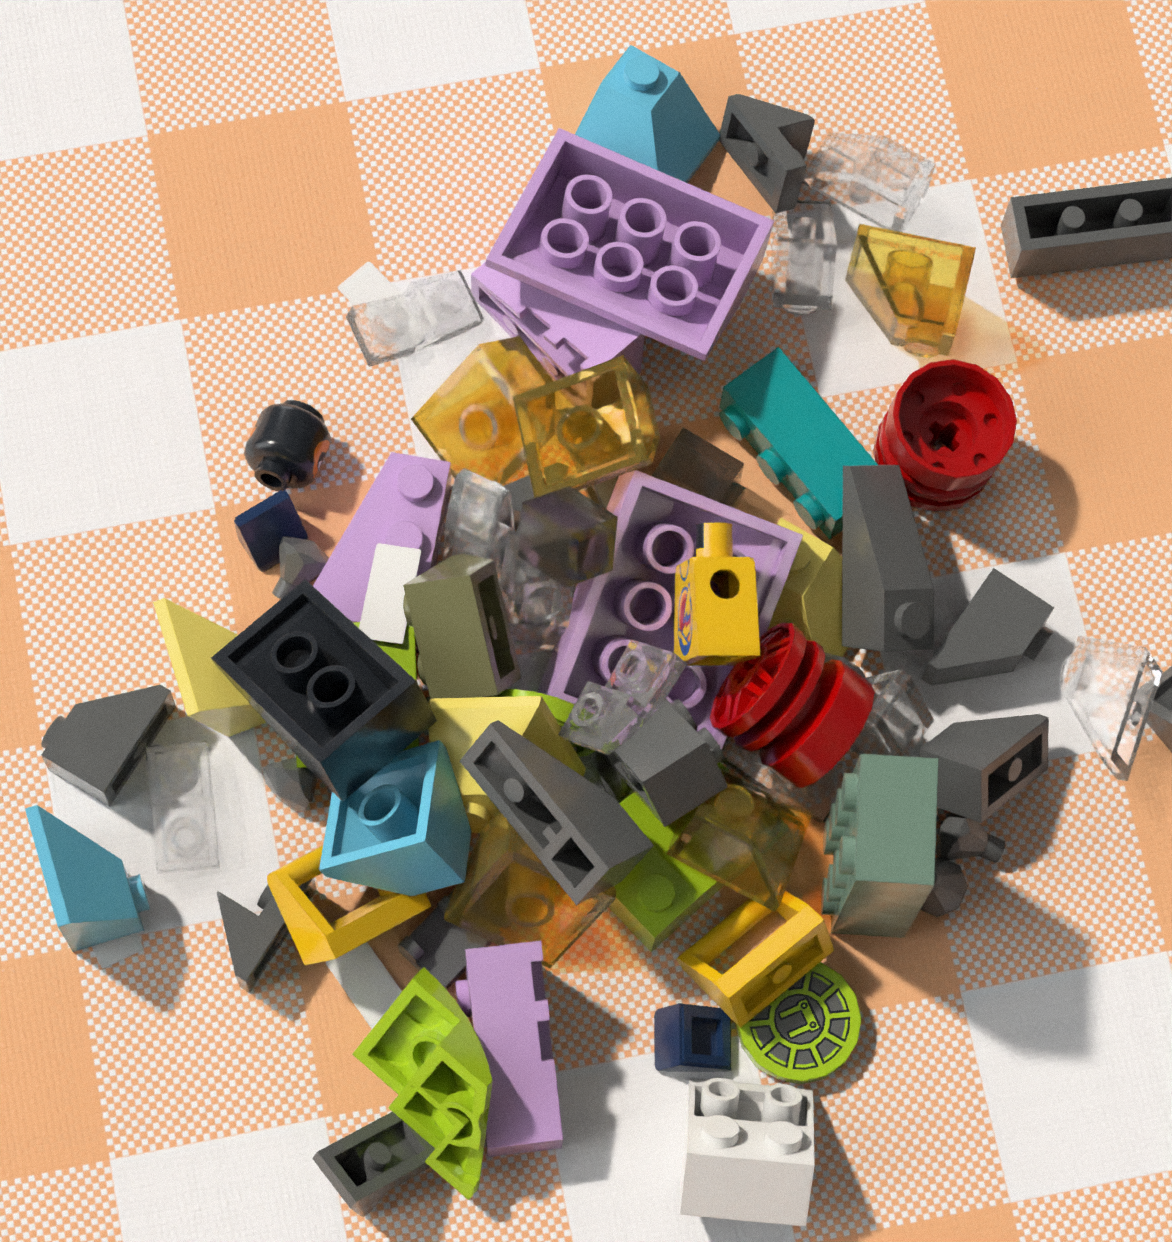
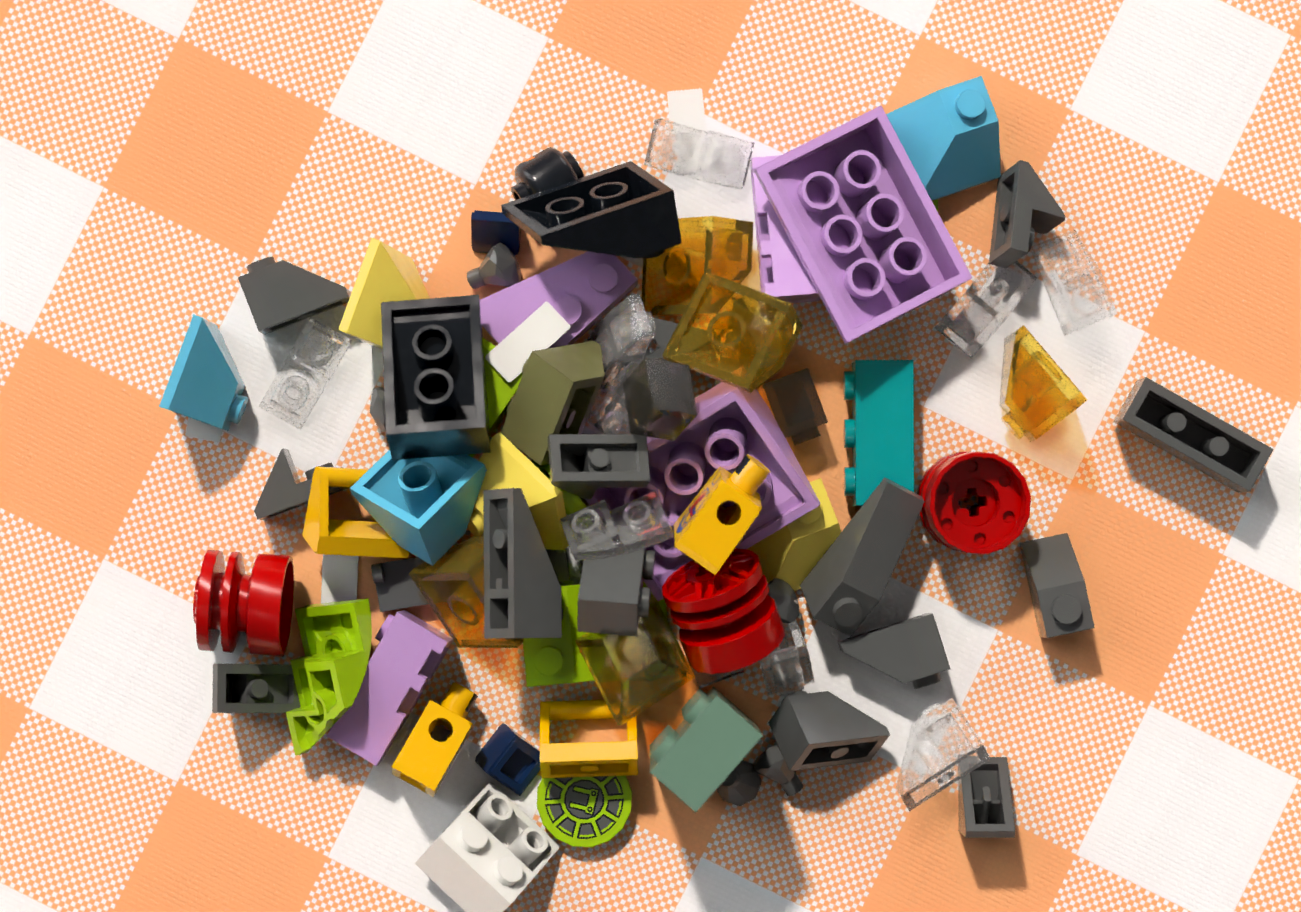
camera: 45 degrees right, 15 degrees up
(297, 1076) = (242, 602): none -> red wheel
(372, 410) = (605, 213): none -> black slope
(553, 642) = (597, 461): none -> dark grey slope
(605, 1074) = (426, 761): none -> yellow torso
(1088, 464) = (1056, 586): none -> dark grey slope

